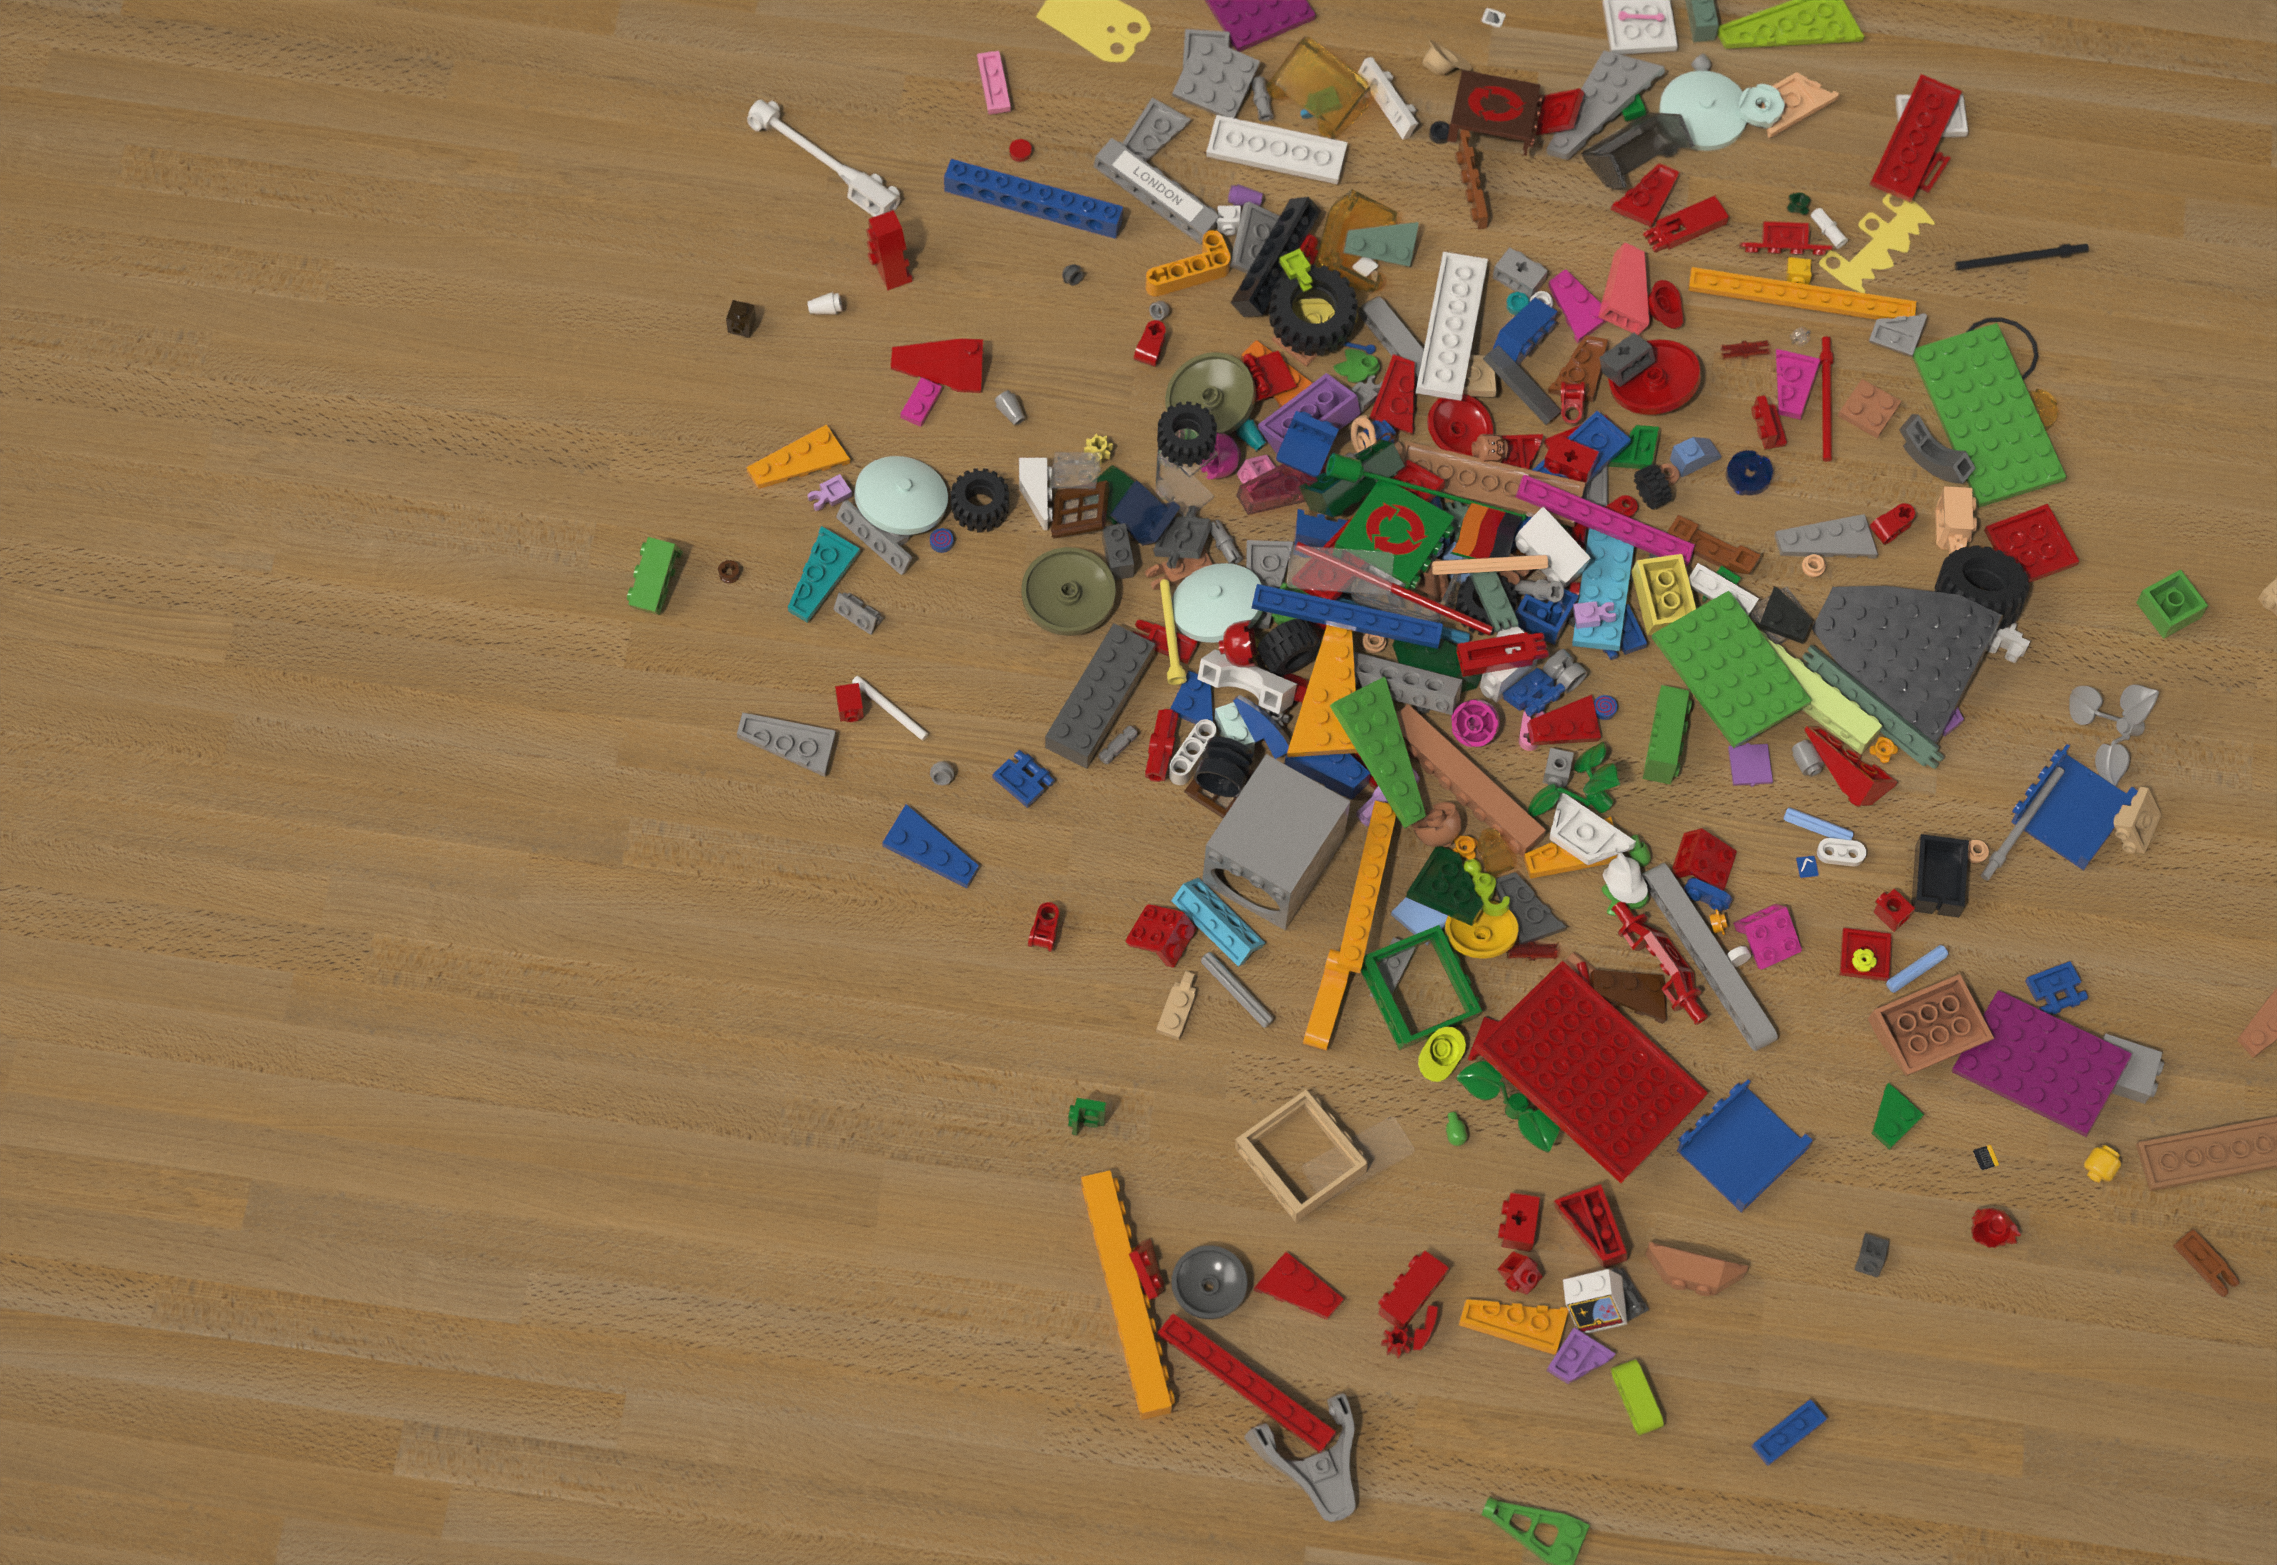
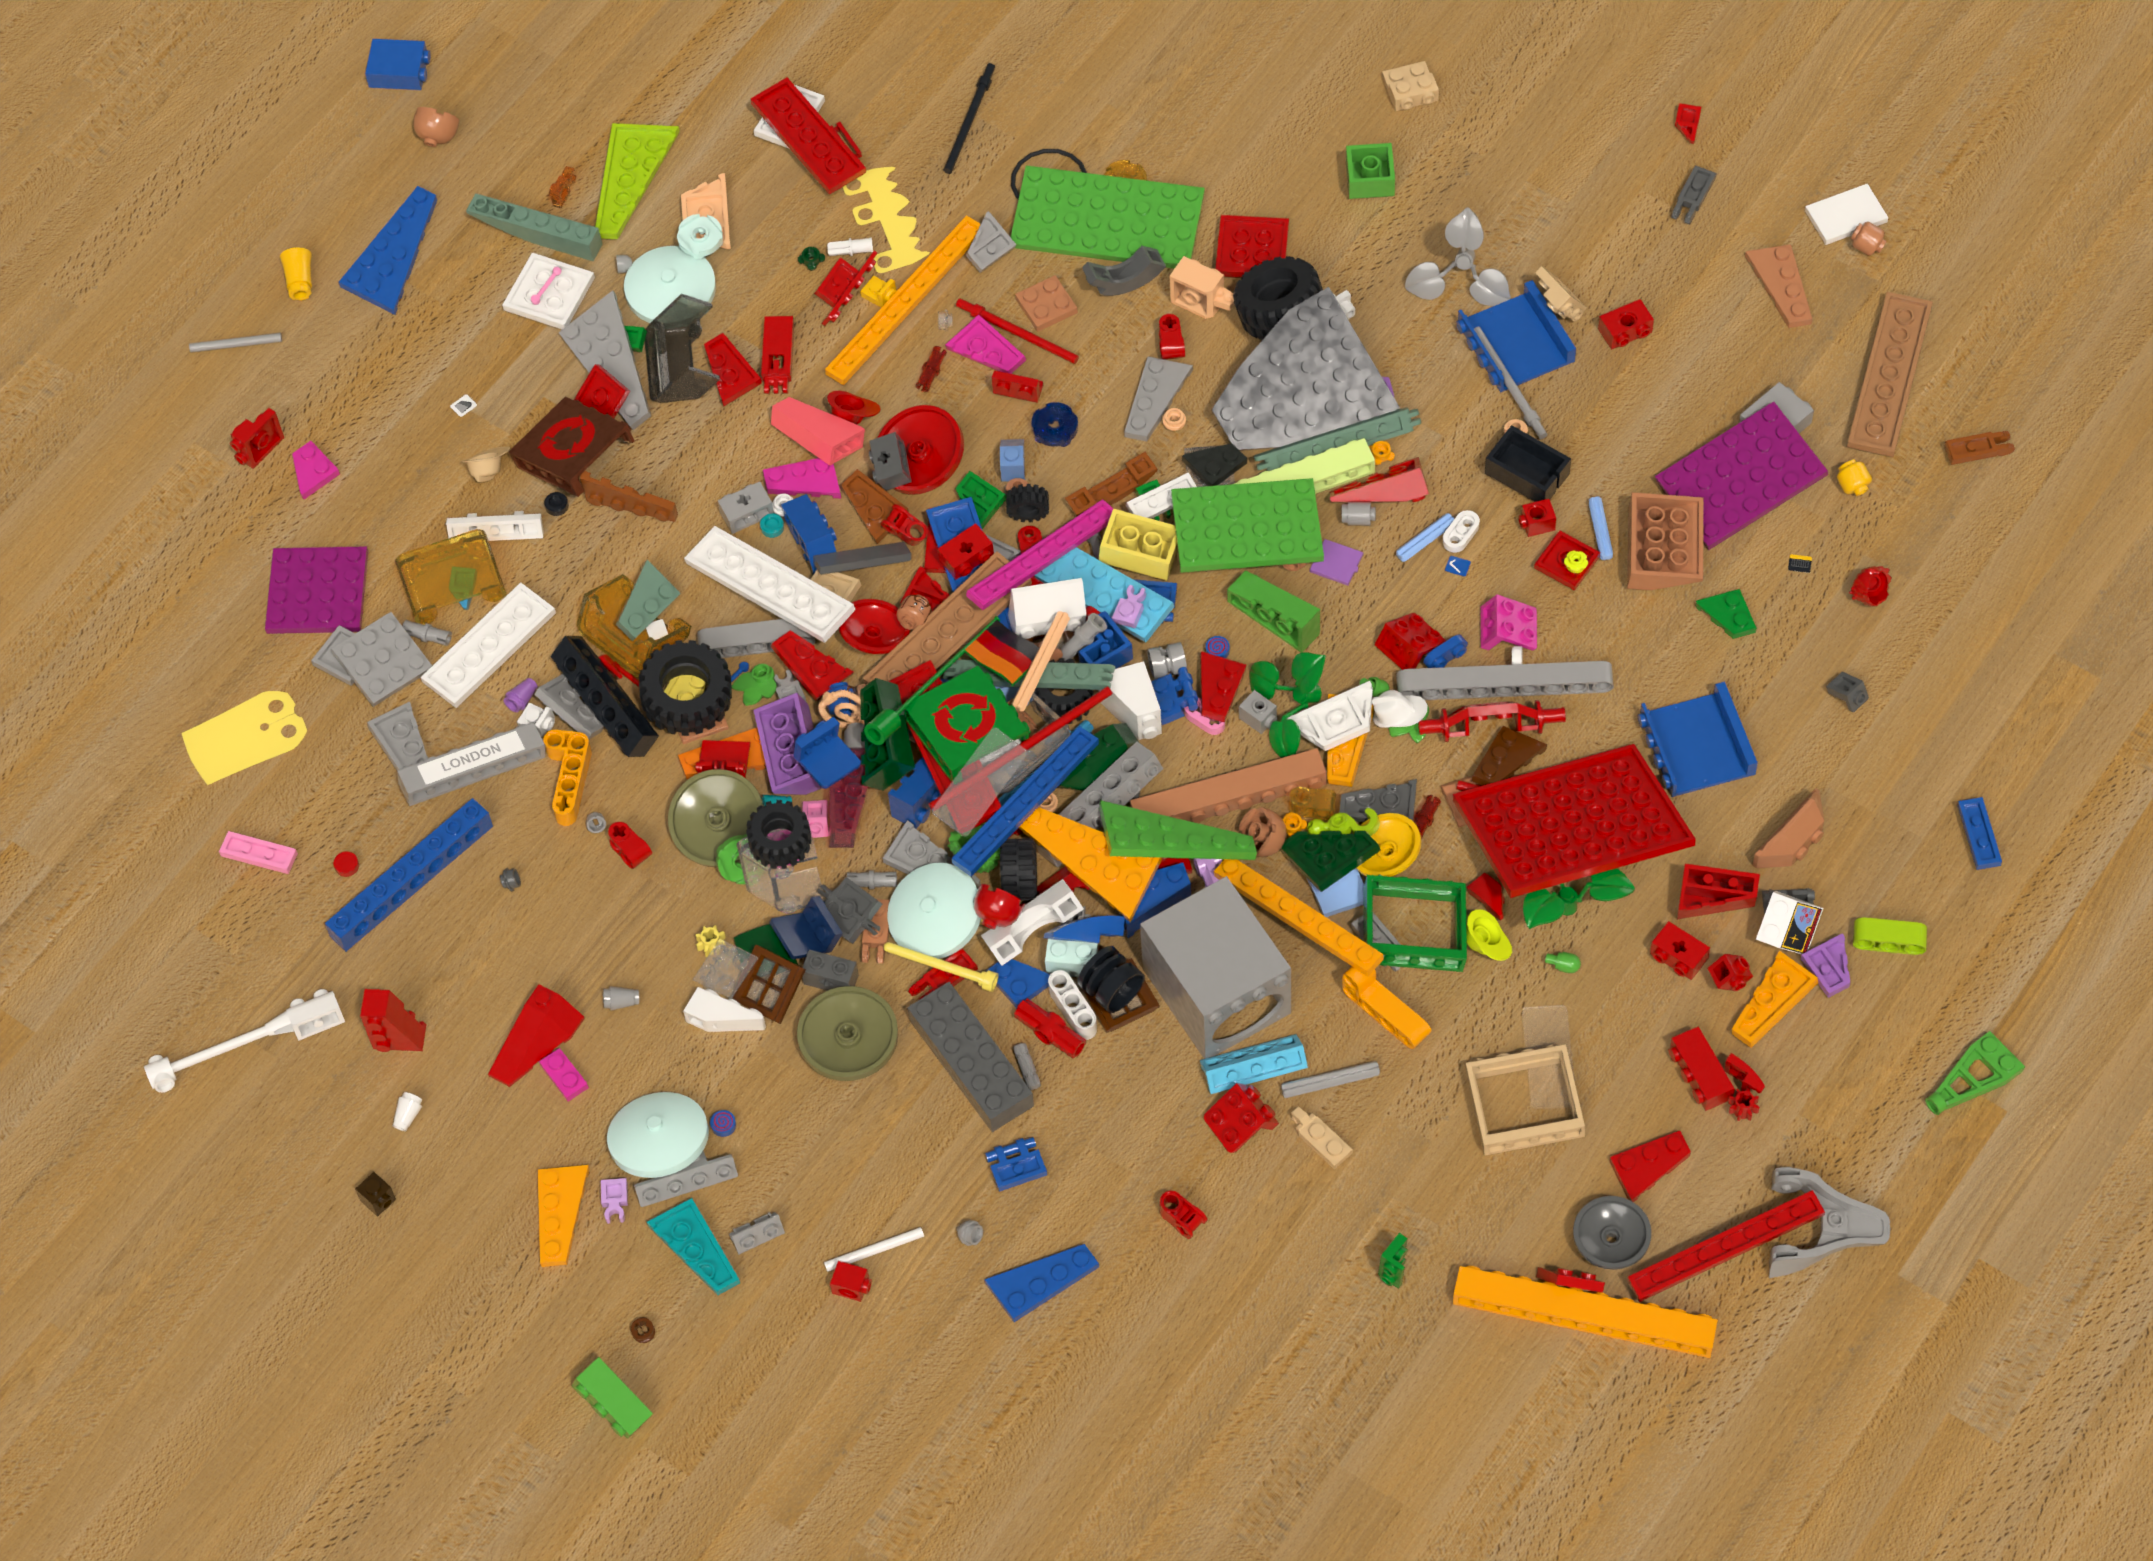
camera: 55 degrees left, 5 degrees down
(793, 741) = (861, 1351): light grey wing -> none
(980, 484) = (702, 1049): black tyre -> none
(1297, 266) = (643, 672): lime plate -> none
(1475, 723) = (1181, 754): dark pink cylinder -> none
(1490, 653) = (1131, 706): red hinge -> none
(1718, 922) = (1476, 657): light orange plate -> none
(2054, 981) = (1668, 432): blue plate -> none
(2142, 882) = (1626, 324): none -> red brick

